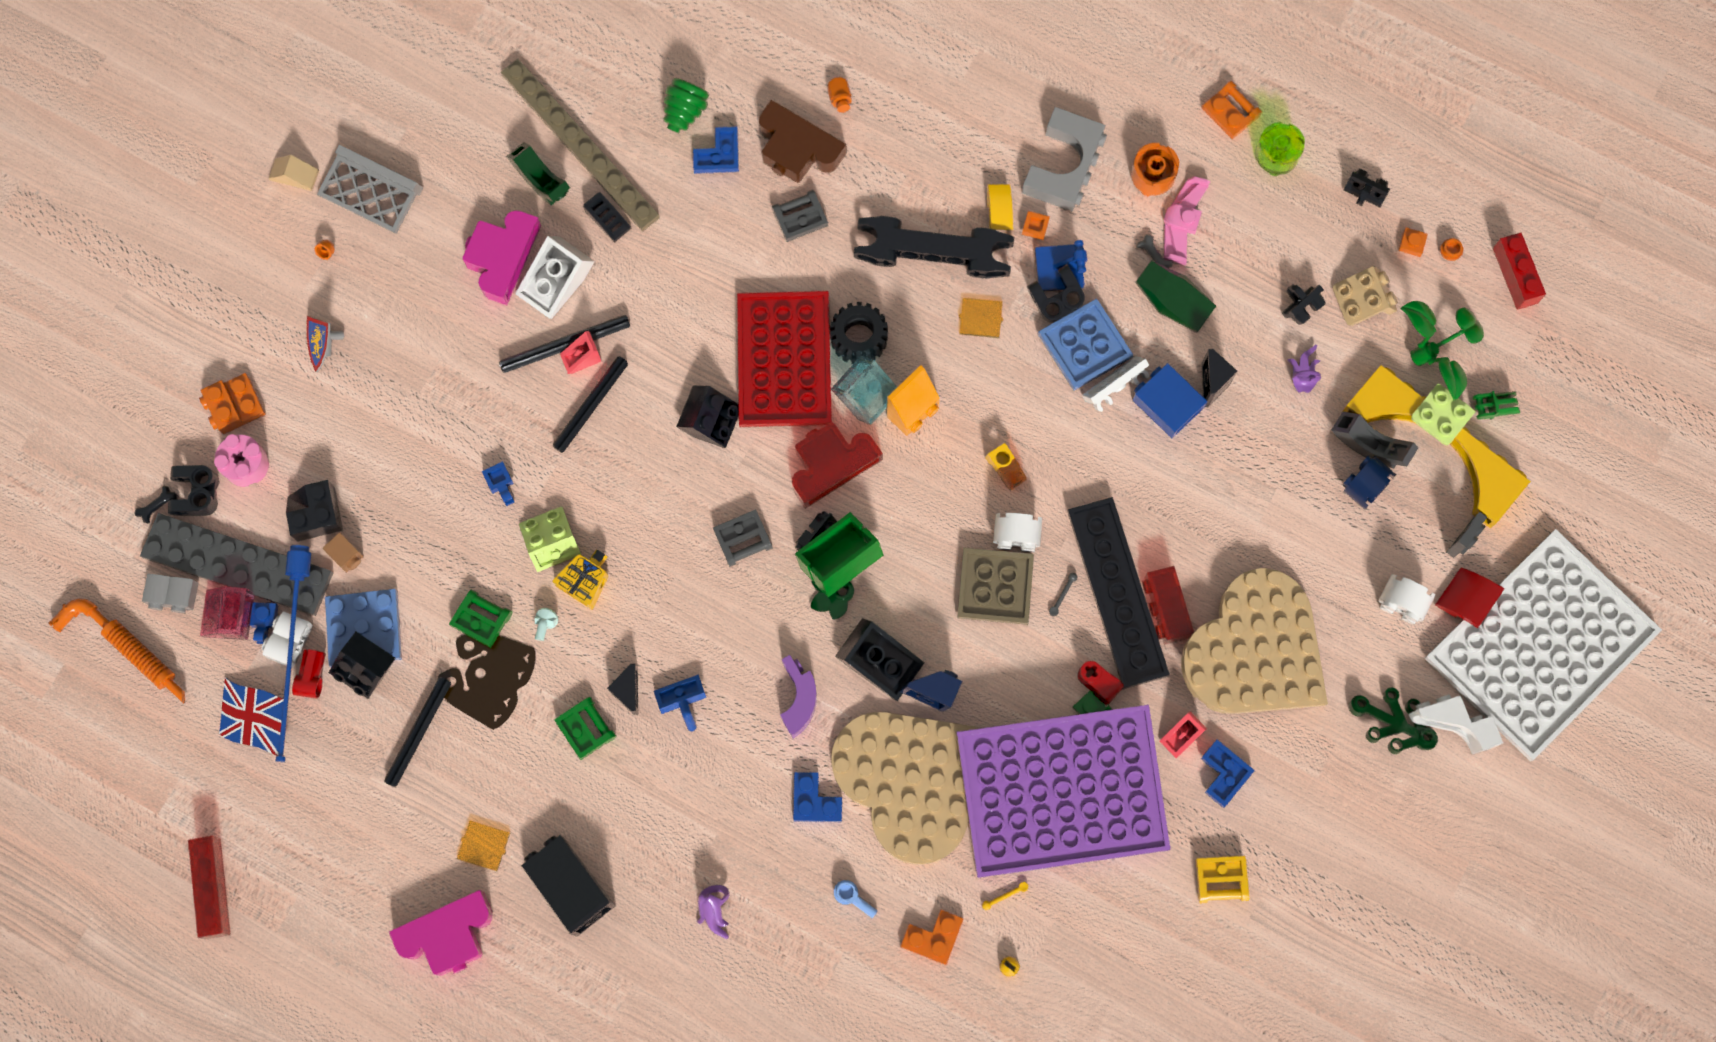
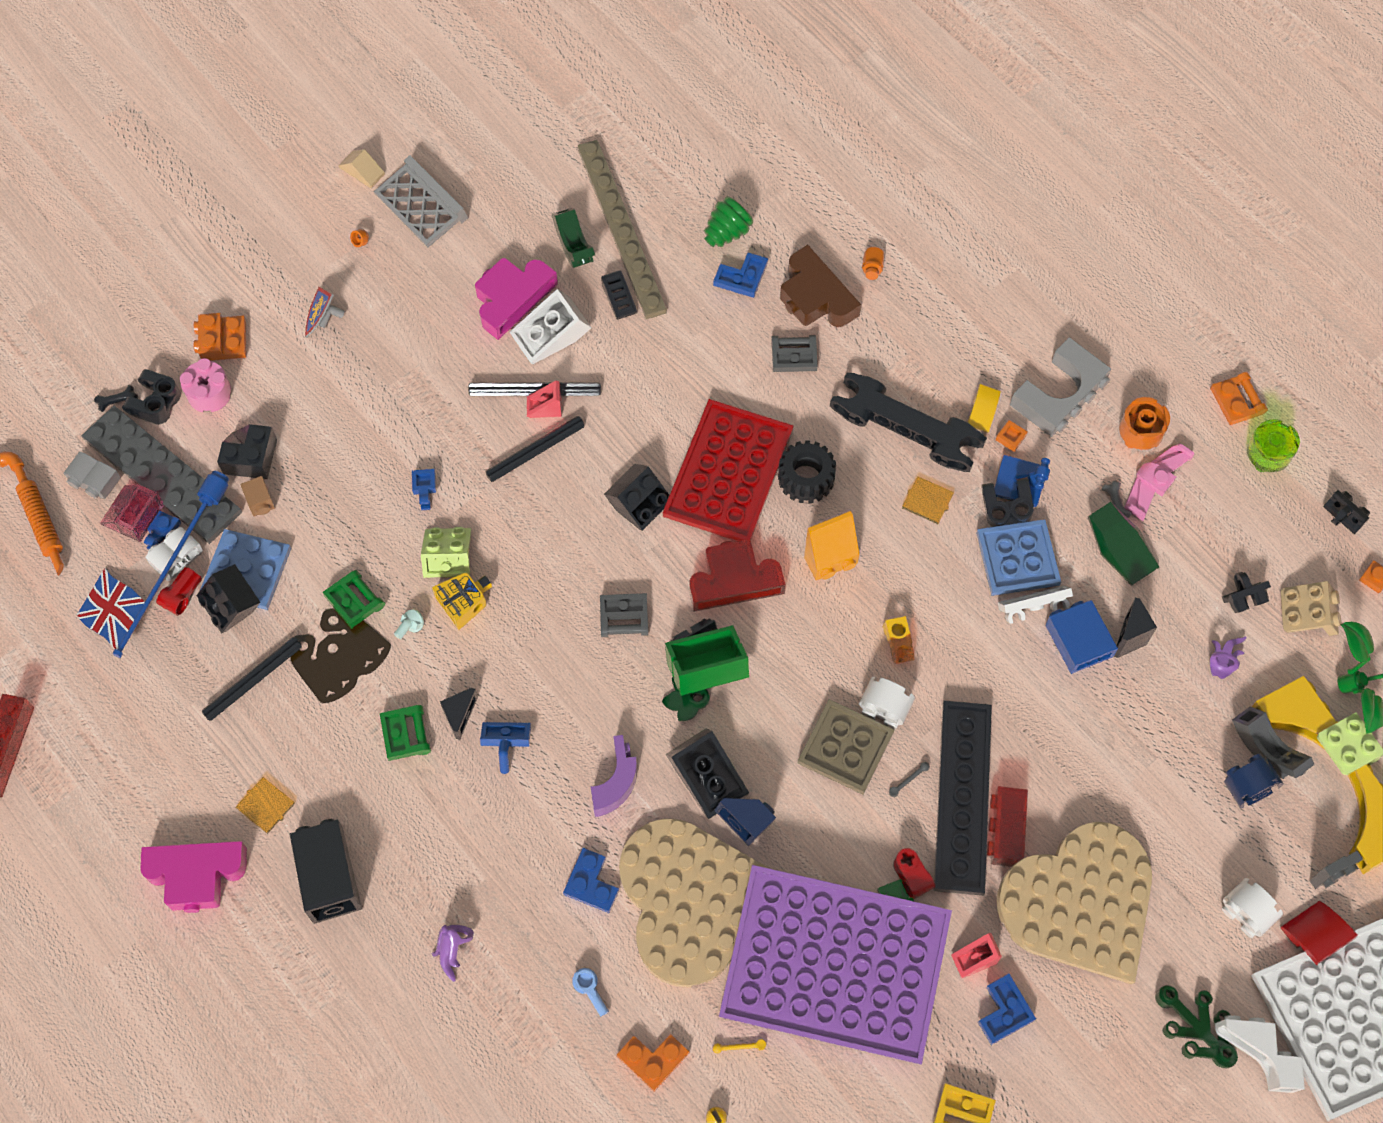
camera: 20 degrees right, 10 degrees down
(864, 389) = (789, 520): clear light blue piece -> none

